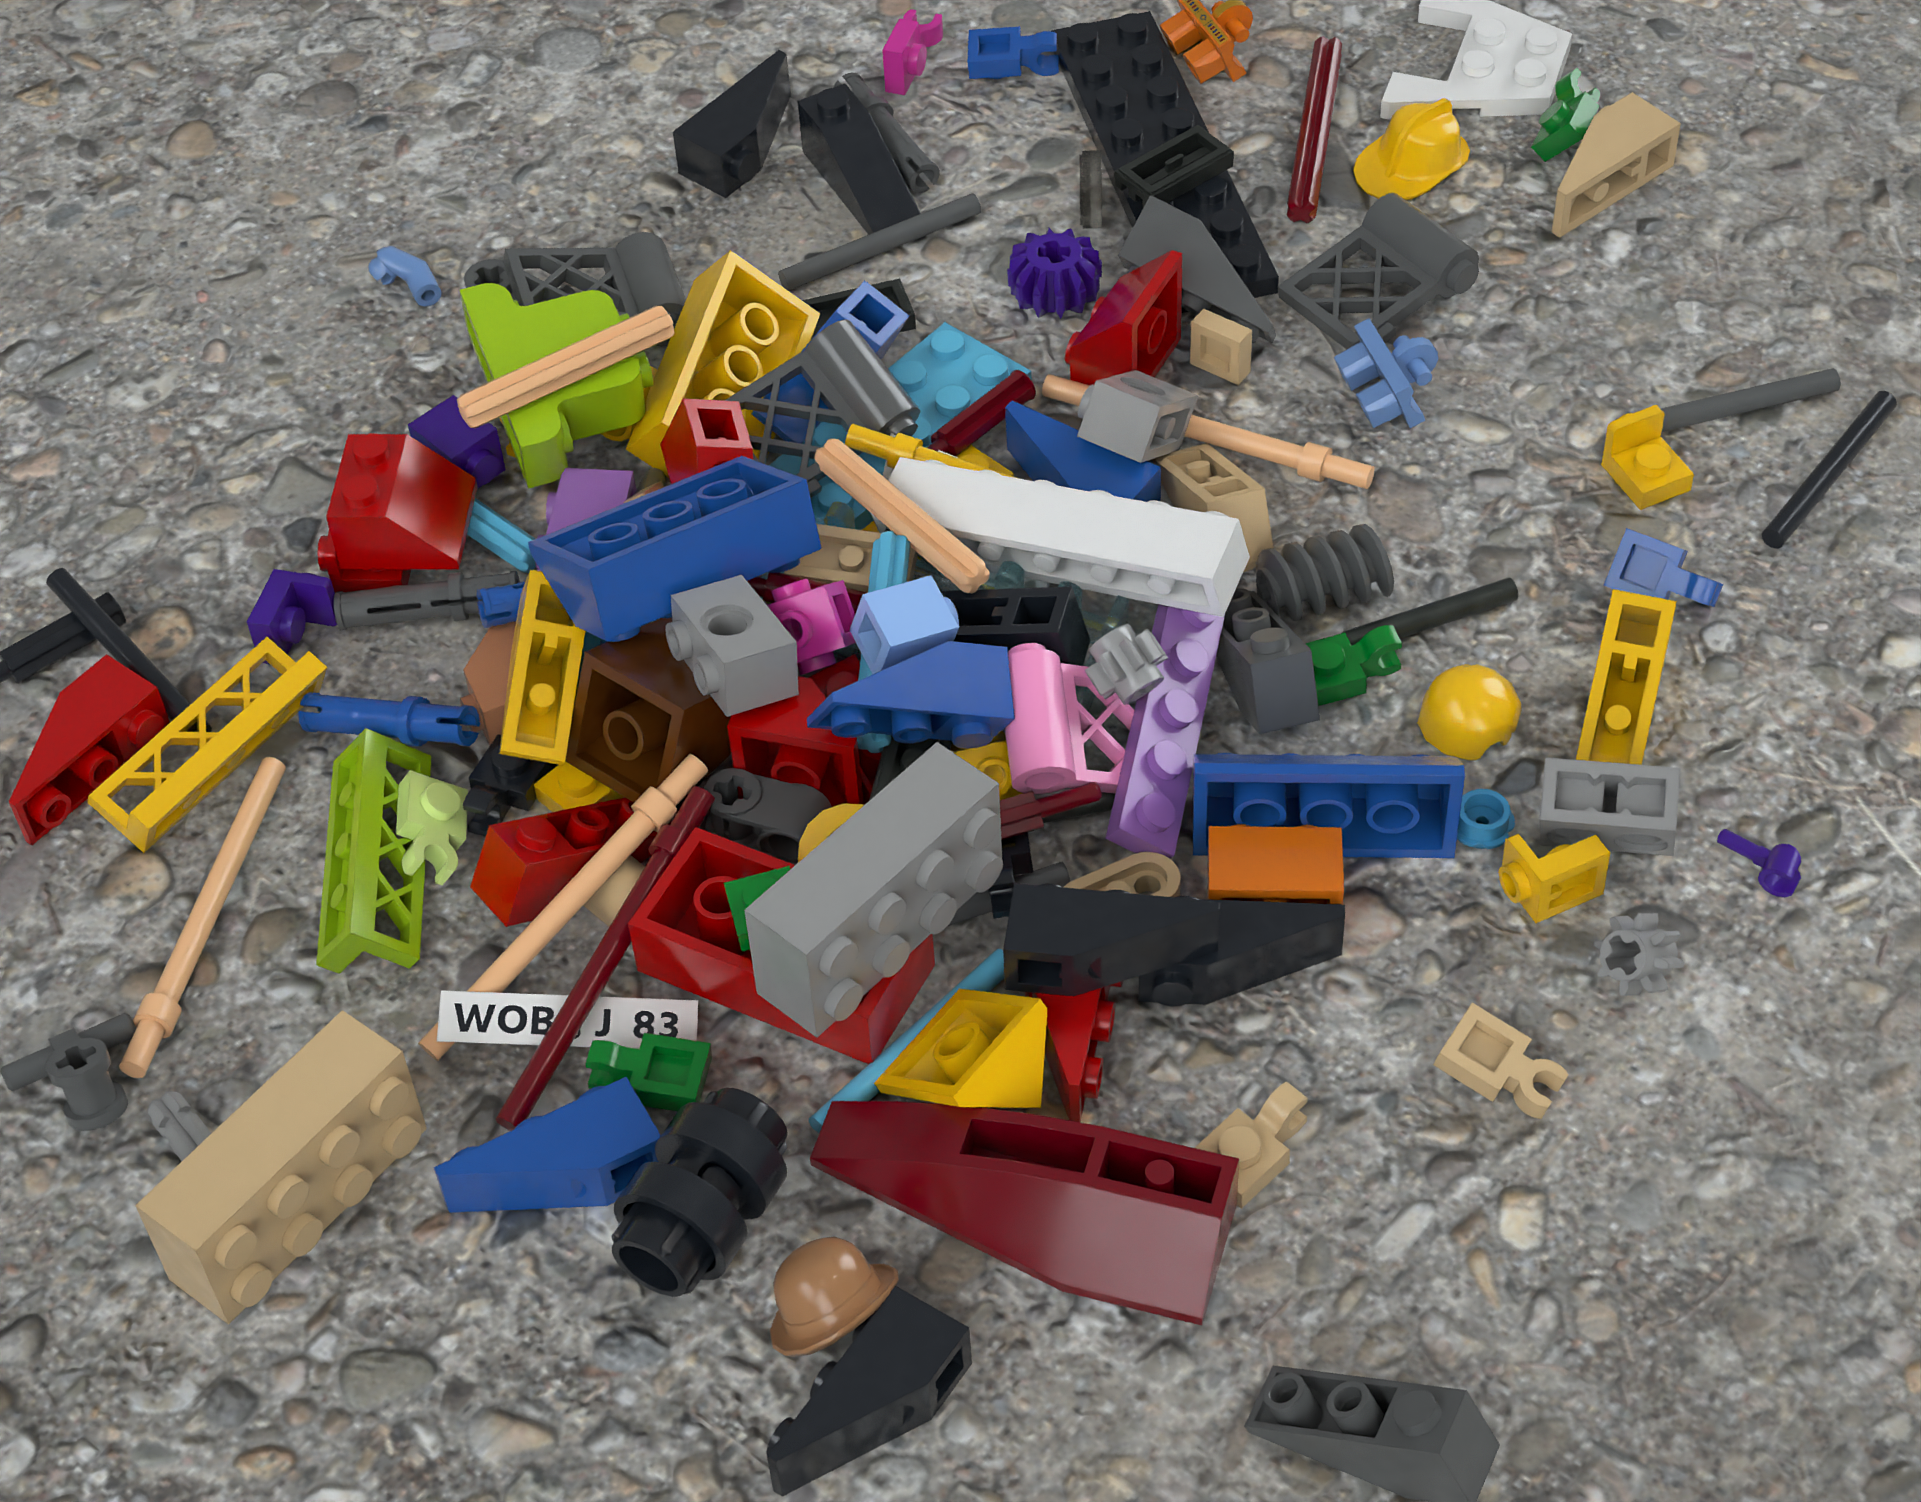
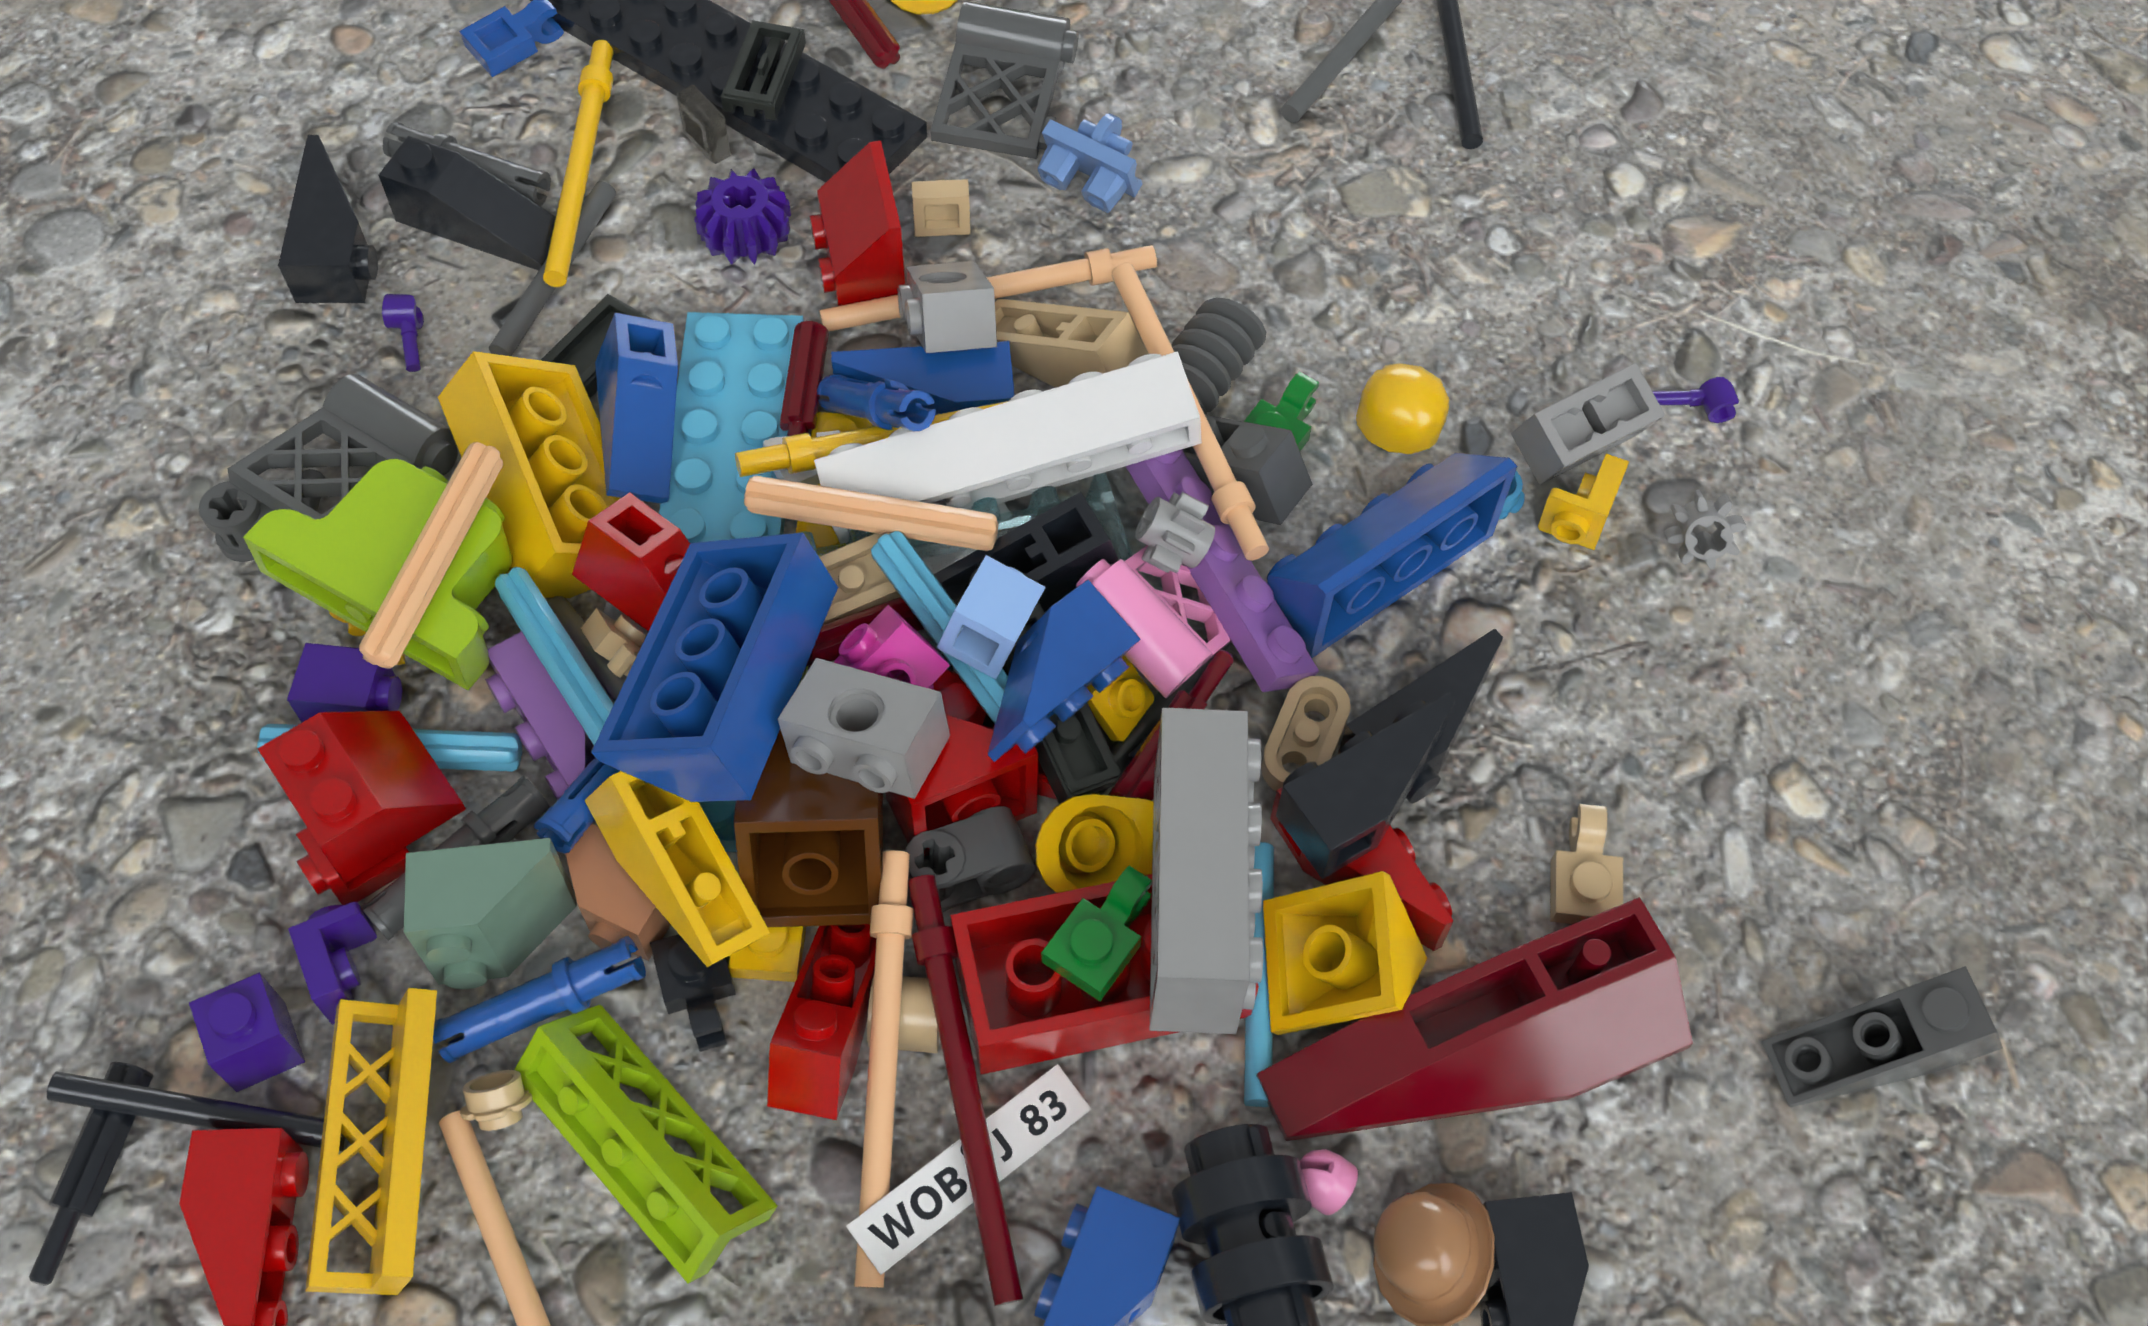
camera: 45 degrees left, 10 degrees up
(197, 624) = (246, 1032): none -> dark purple brick
(305, 767) = (495, 1099): none -> tan plate
(400, 631) = (483, 907): none -> sand green slope
(415, 271) = (94, 543): medium blue arm -> none
(434, 819) = (672, 1066): yellowish green plate -> none
(607, 469) = (555, 650): none -> medium azure axle
(662, 1071) = (1096, 1151): green plate -> none
(739, 219) = (401, 312): none -> dark purple hand
(804, 1200) = (1328, 1180): none -> bright pink hinge
(850, 384) = (697, 418): dark grey piece -> none
(906, 50) = (420, 76): dark pink plate -> none
(995, 460) = (882, 403): none -> blue pin
(1035, 124) = (594, 89): none -> yellow bar
(1207, 274) = (837, 131): dark grey slope -> none
(1212, 672) = (1229, 496): none -> light nougat bar
(1275, 864) = (1403, 635): orange brick -> none
(1443, 610) = (1301, 343): pearl dark grey bar -> none
(1491, 1056) = (1682, 684): tan plate -> none
(1626, 678) = (1498, 319): yellow slope -> none
(1643, 460) = (1334, 130): yellow bracket -> none
(1655, 570) = (1427, 214): plate -> none

